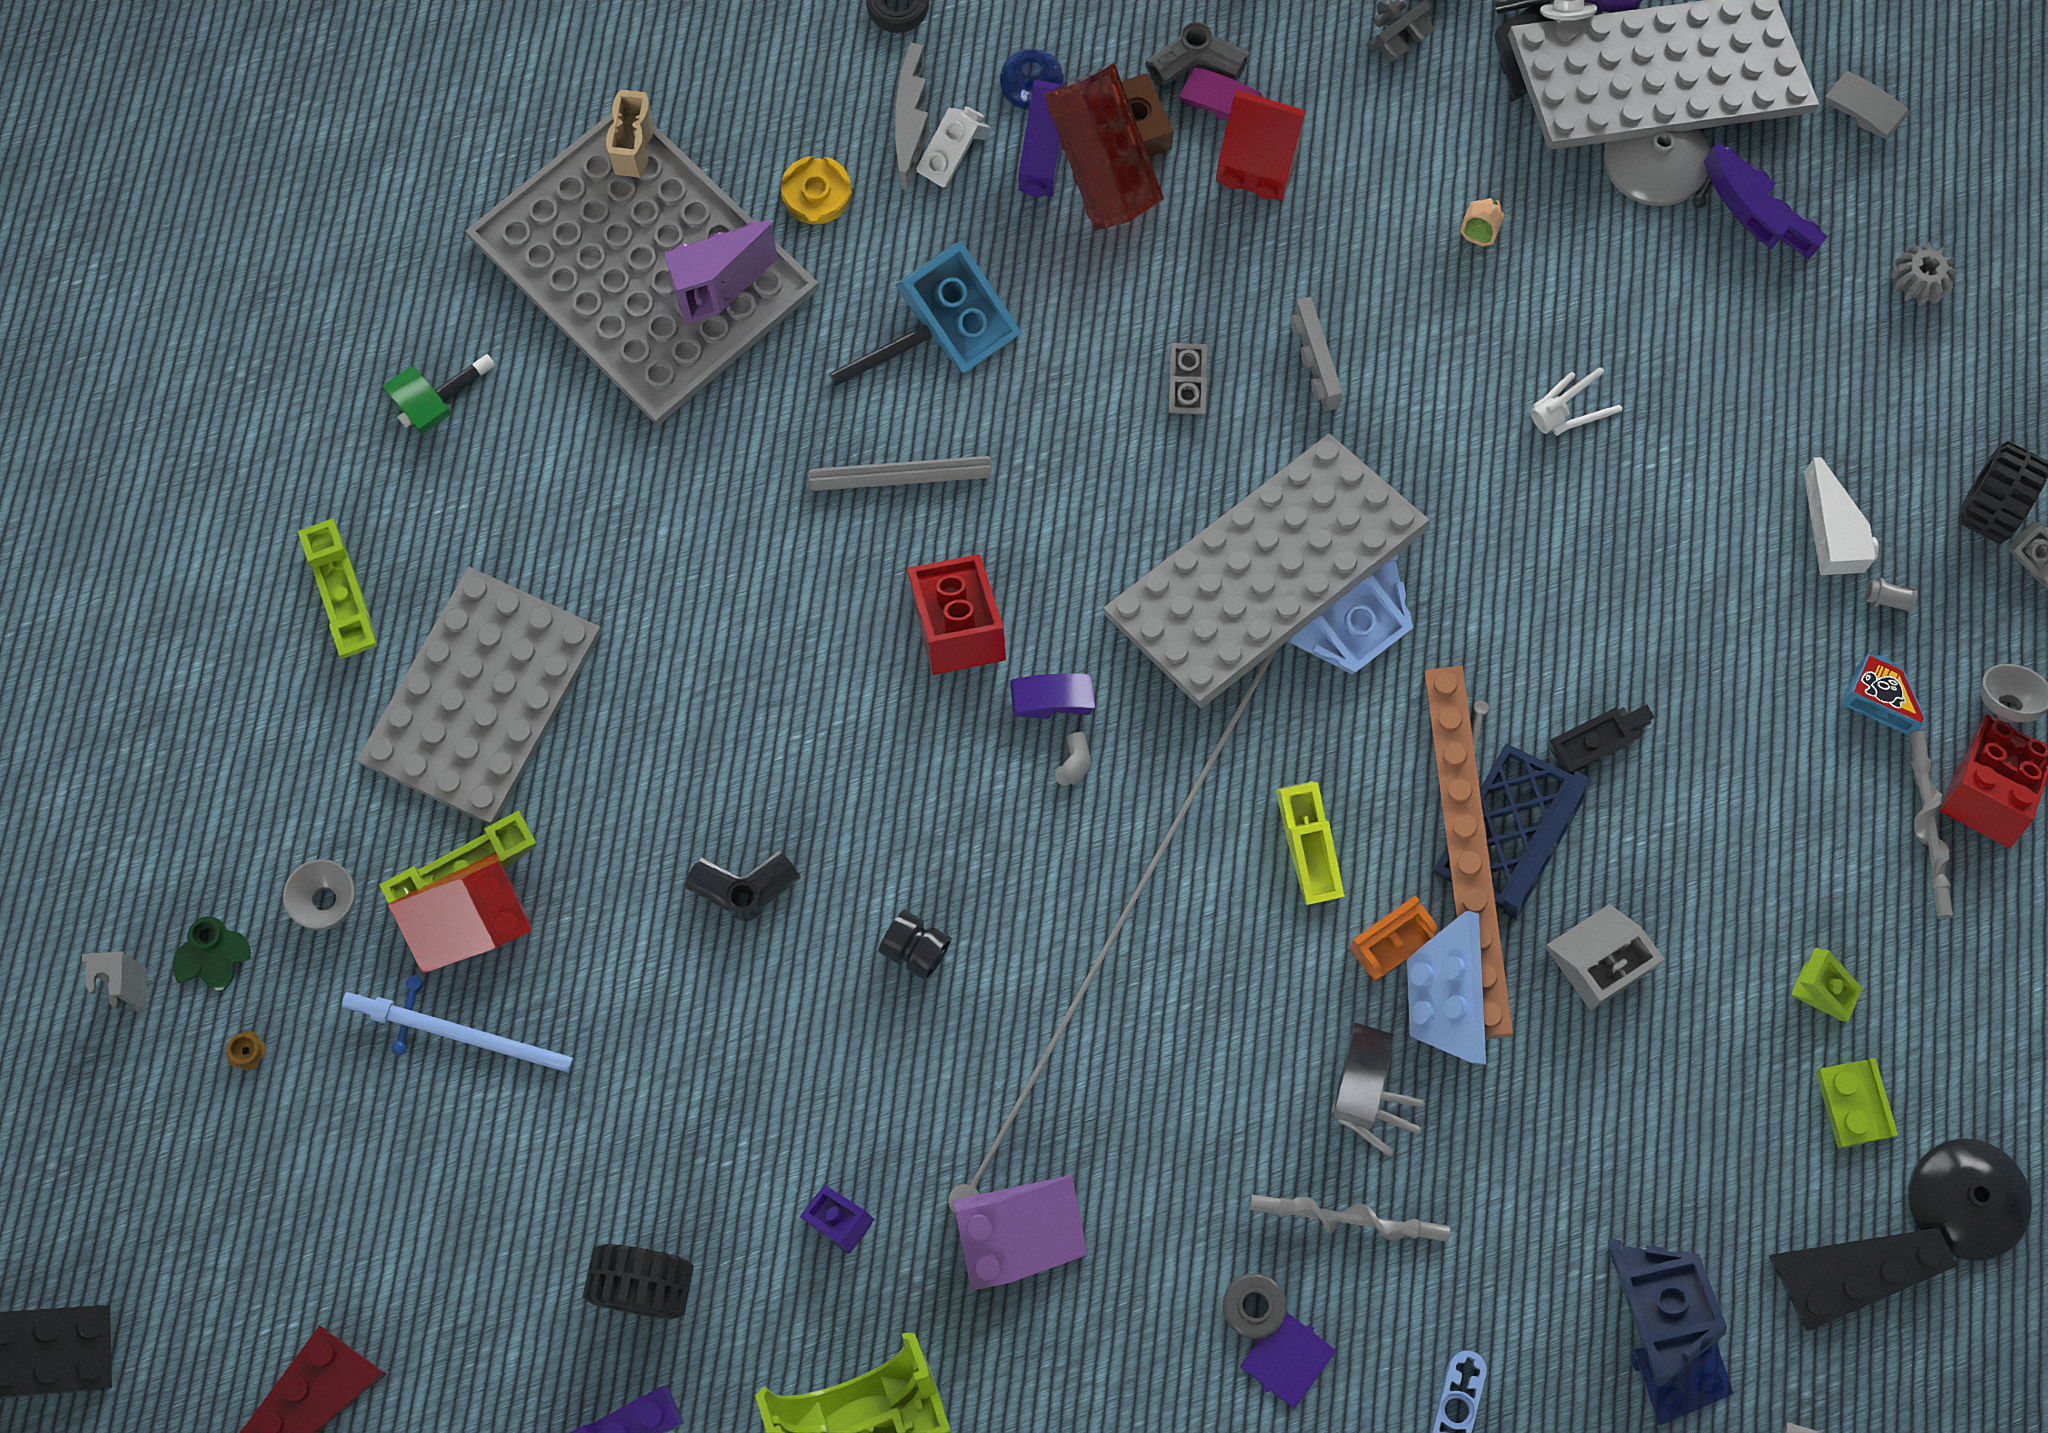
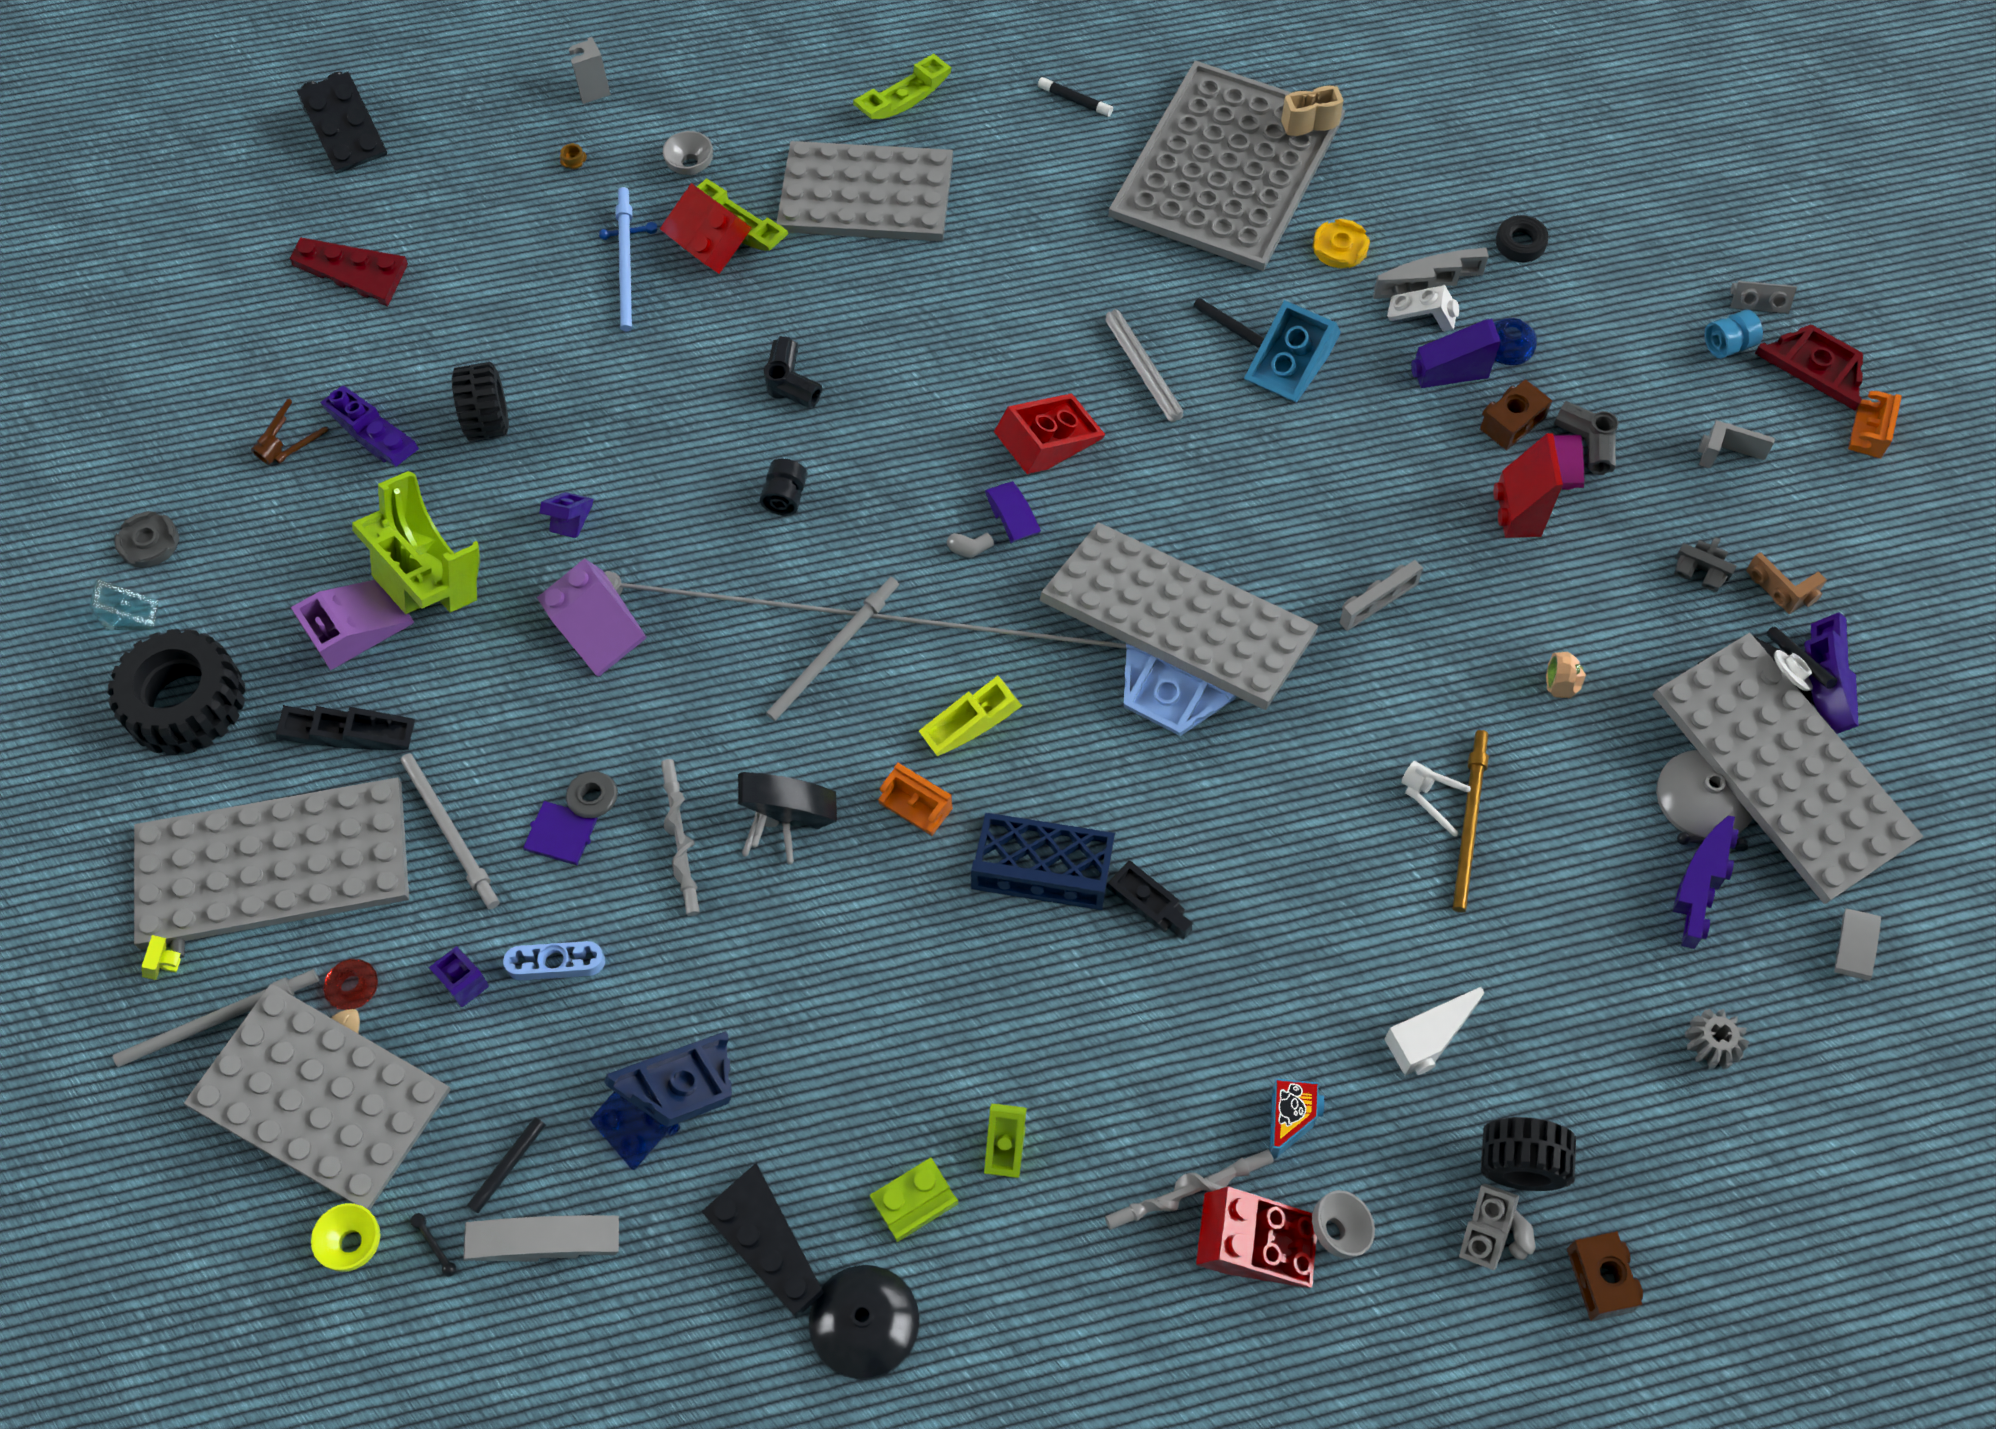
camera: 70 degrees right, 10 degrees down
(210, 960) = (630, 117): dark green plate -> none
(417, 400) = (1058, 81): green slope -> none
(718, 269) = (1233, 191): medium lavender slope -> none
(1104, 147) = (1468, 386): clear red slope -> none
(1125, 896) = (872, 605): none -> light grey bar
(1187, 378) = (1314, 520): light grey slope -> none
(1448, 991) = (882, 842): light blue wing -> none
(1467, 834) = (1006, 827): nougat plate -> none
(1479, 709) = (1137, 809): light grey hinge -> none
(1549, 350) = (1477, 764): none -> pearl gold bar
(1604, 955) = (958, 955): light grey slope -> none
(1890, 595) = (1390, 1098): light grey pin -> none

